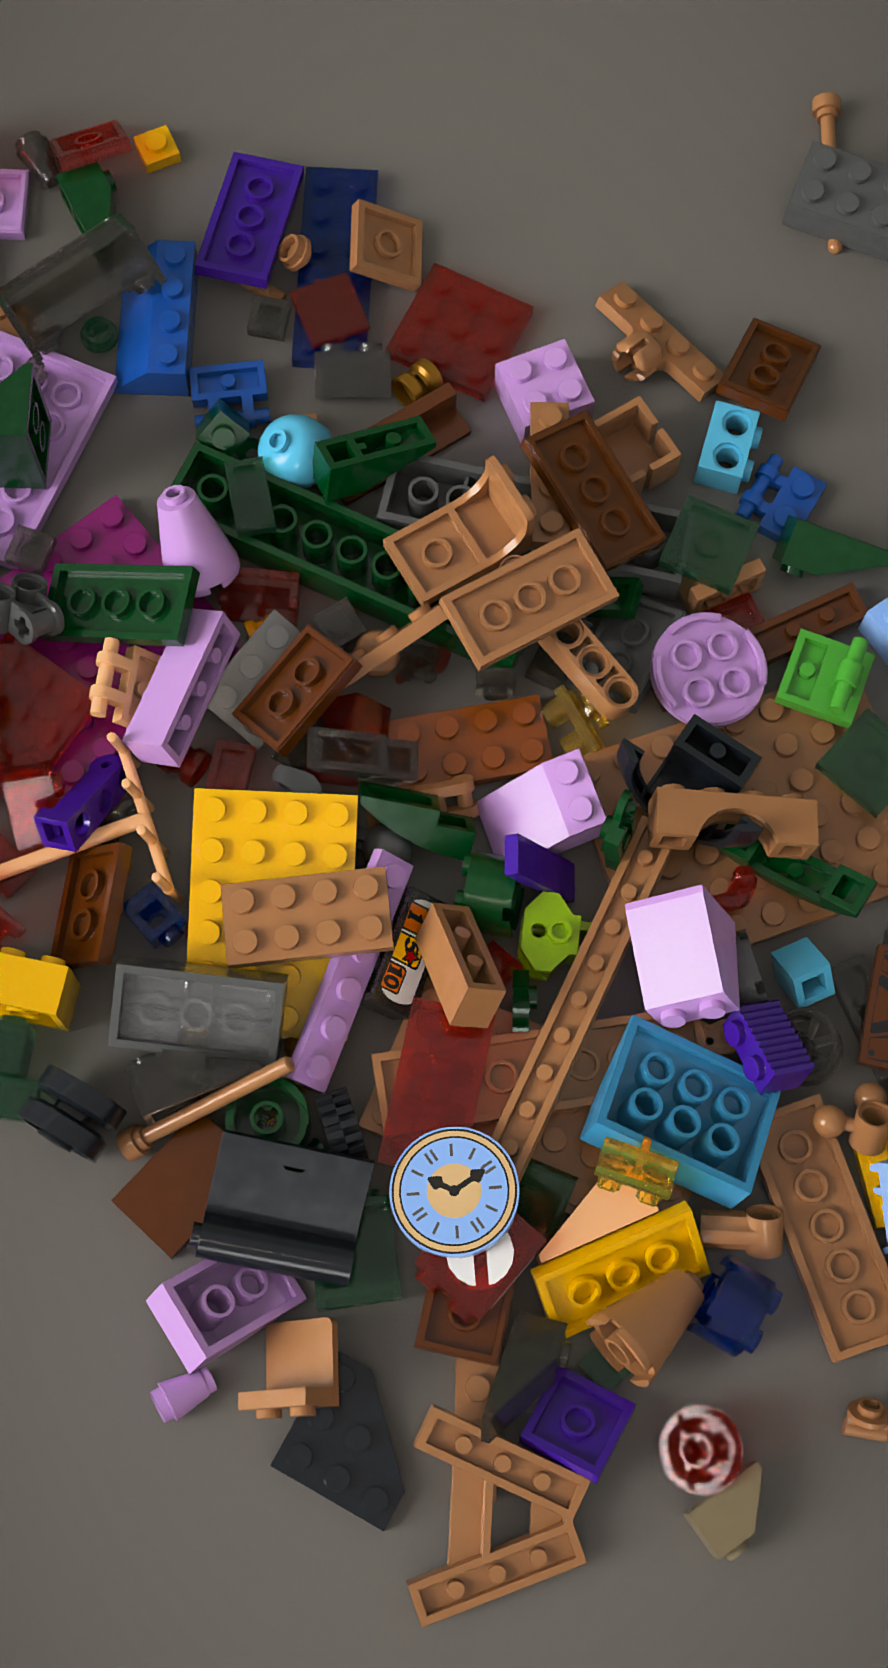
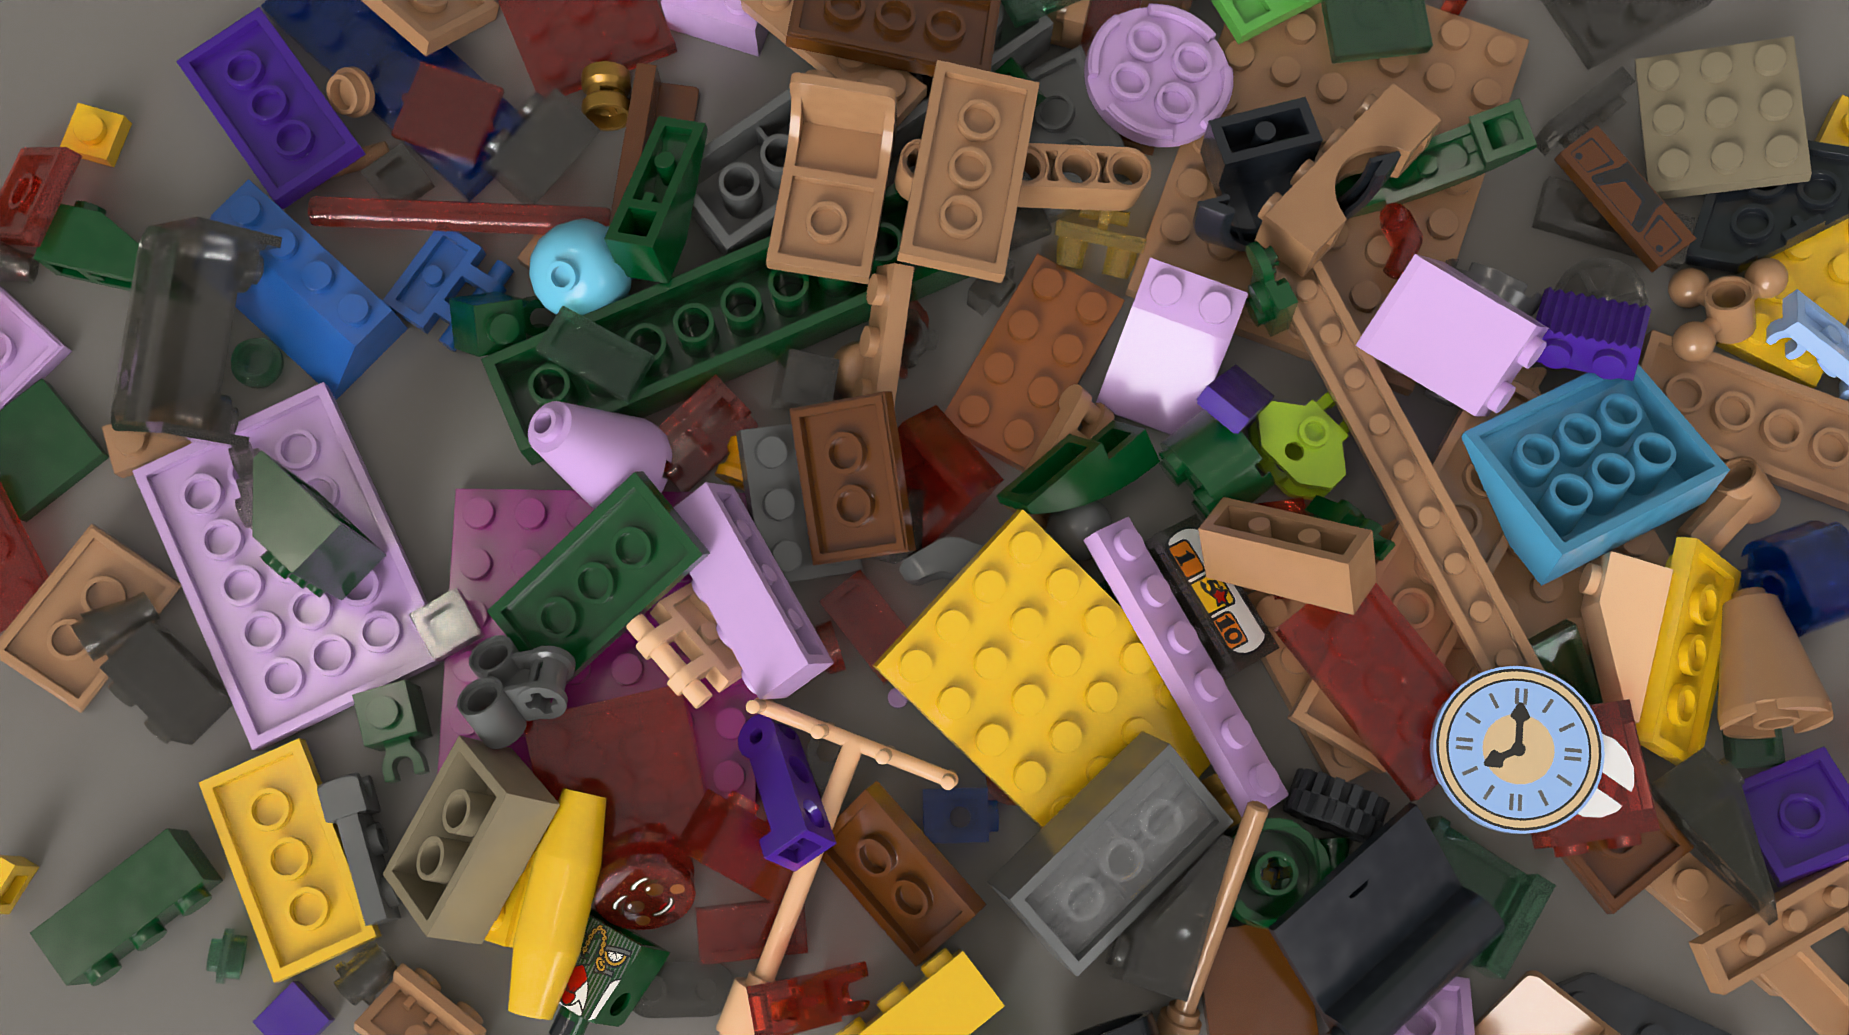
camera: 50 degrees left, 5 degrees up
(266, 357) = (446, 215): none -> clear red axle
(307, 917) = (1108, 665): medium nougat plate -> none
(362, 756) = (981, 470): clear smoke slope -> none
(636, 1168) = (1631, 555): clear yellow hips -> none
(803, 972) = (1527, 244): medium azure brick -> none

